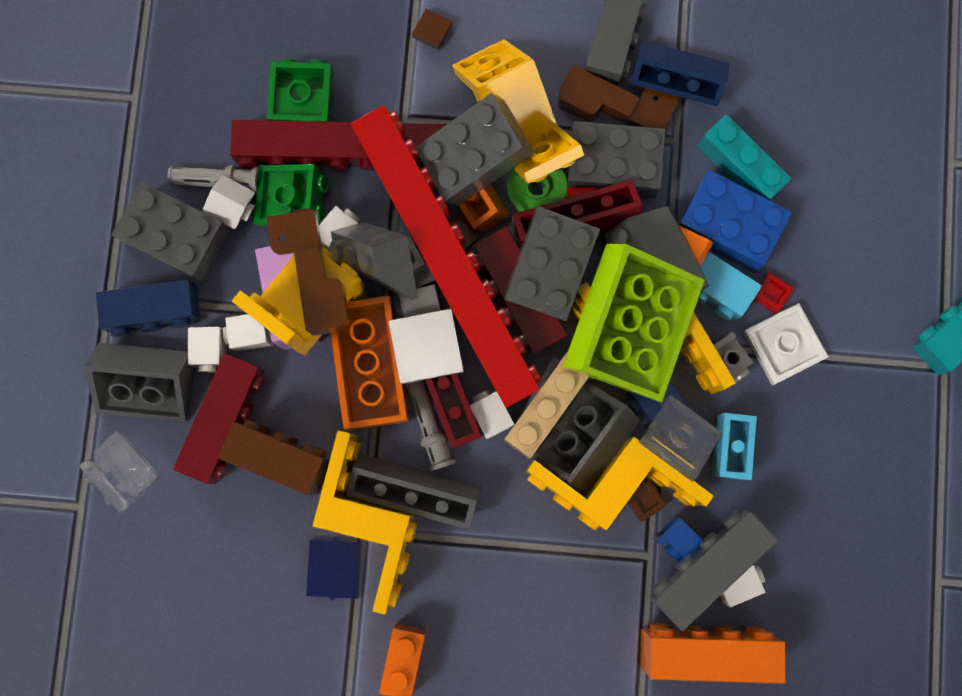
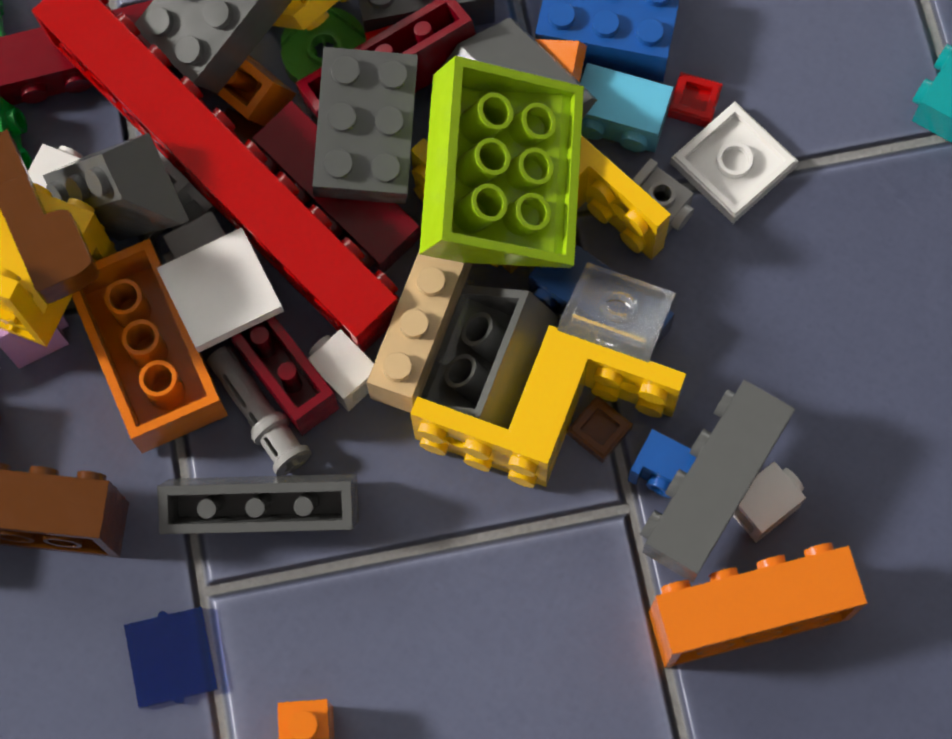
camera: 15 degrees left, 10 degrees down
(365, 520) = (197, 561): yellow bracket -> none
(735, 448) = (701, 313): medium azure brick -> none

